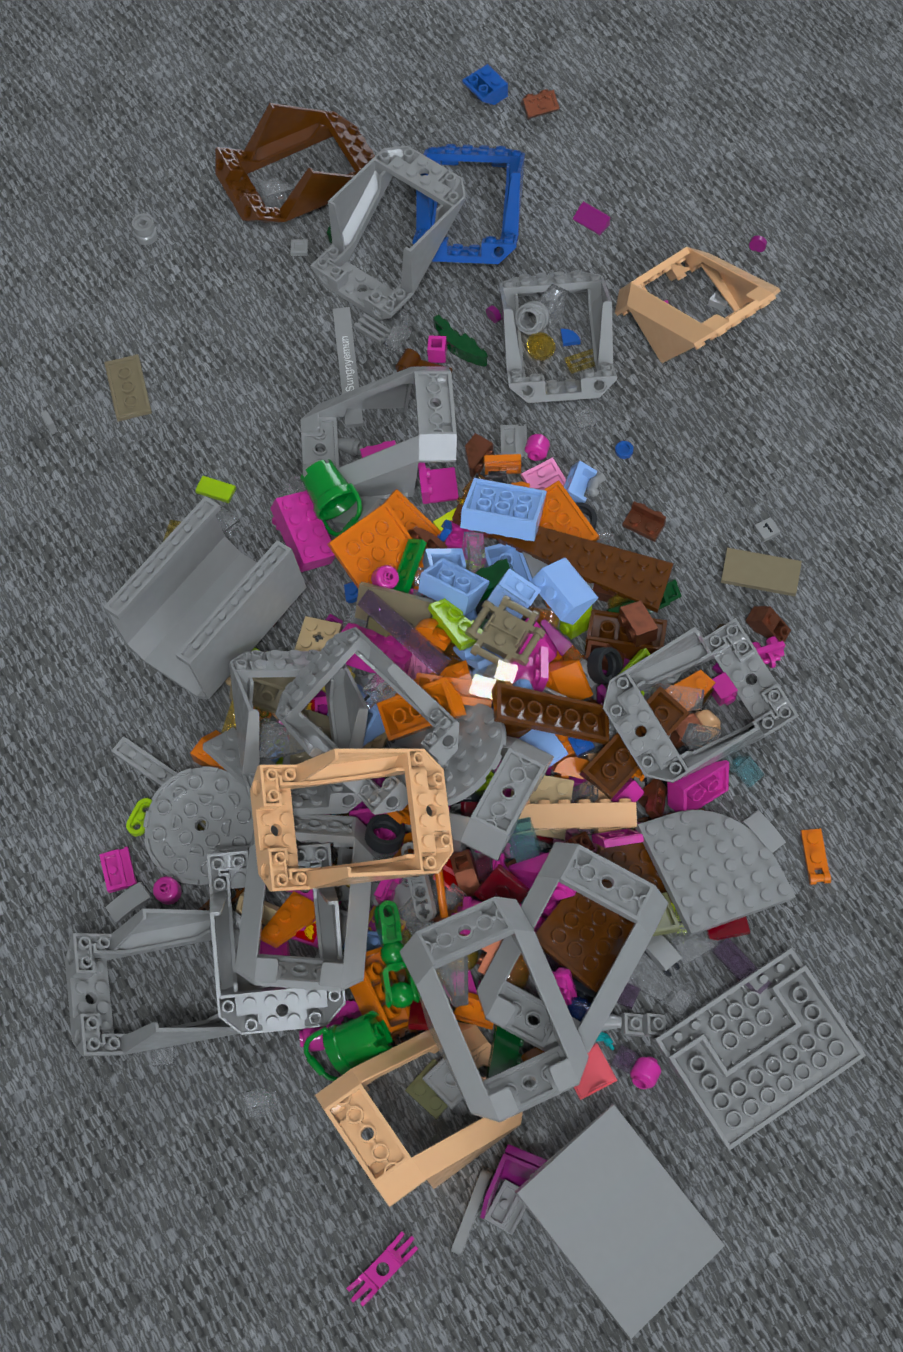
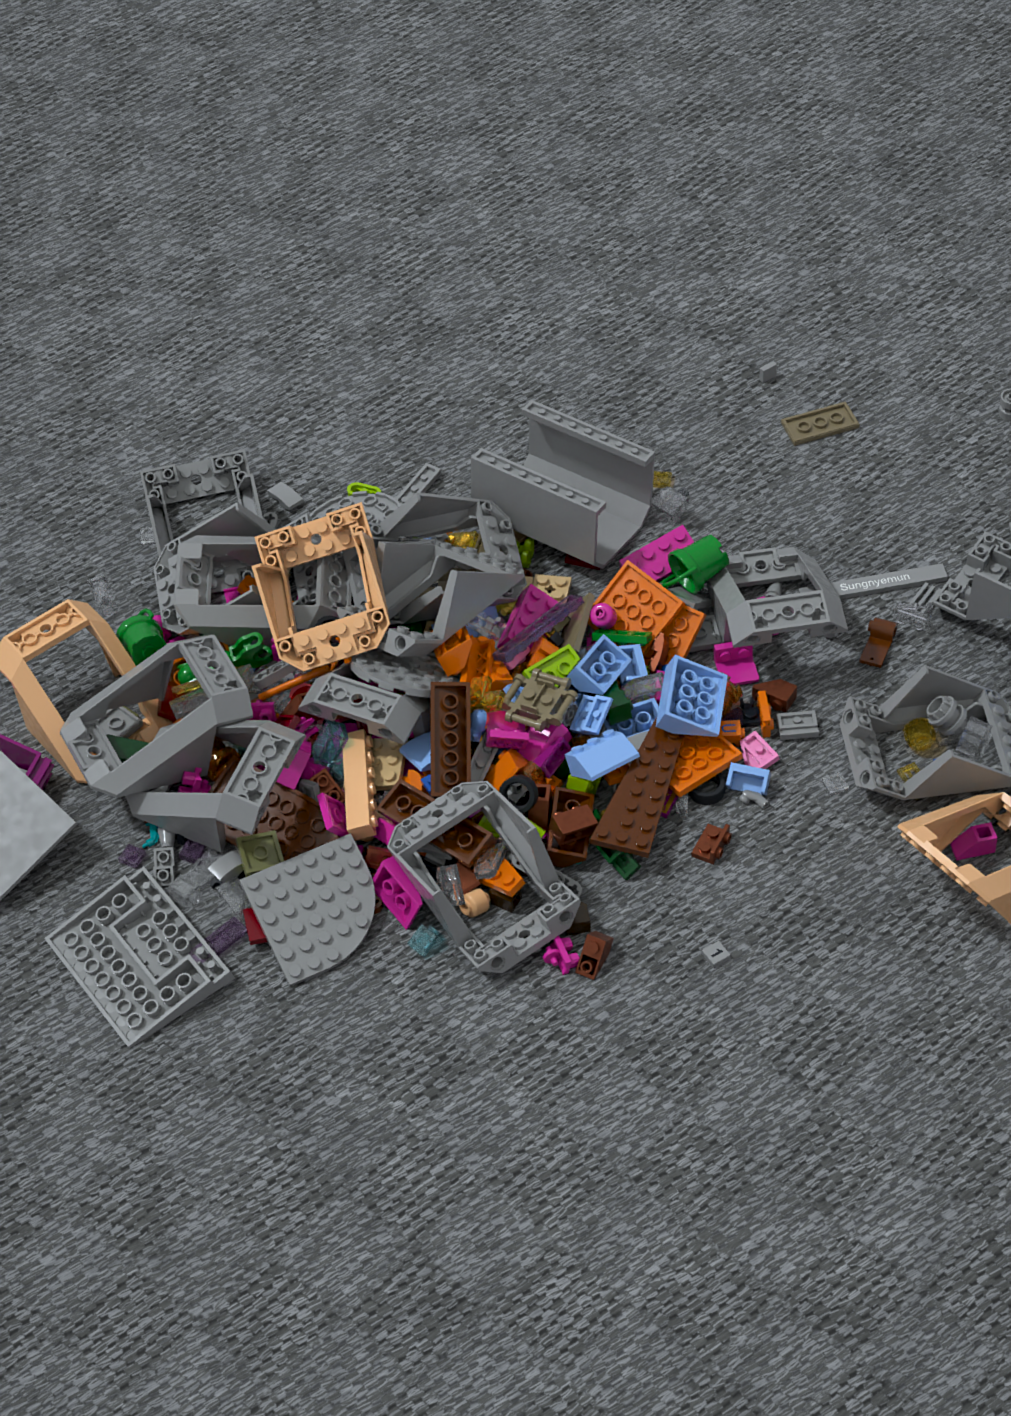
camera: 85 degrees right, 15 degrees down
(117, 869) = (314, 484): dark pink plate -> none
(167, 890) = (291, 512): dark pink head -> none
(215, 489) = (710, 501): lime tile -> none
(437, 349) = (901, 648): dark pink brick -> none
(460, 346) = (917, 660): dark green slope -> none
(537, 447) = (791, 743): dark pink head -> none
(596, 1074) = (123, 831): coral piece -> none
(624, 449) = (803, 822): blue tile -> none
(645, 1072) = (116, 867): dark pink head -> none
(724, 690) = (513, 913): dark pink brick -> none
(761, 572) = (662, 950): dark tan tile -> none
(764, 831) = (357, 956): light grey slope -> none
(815, 856) = (333, 1003): orange plate -> none

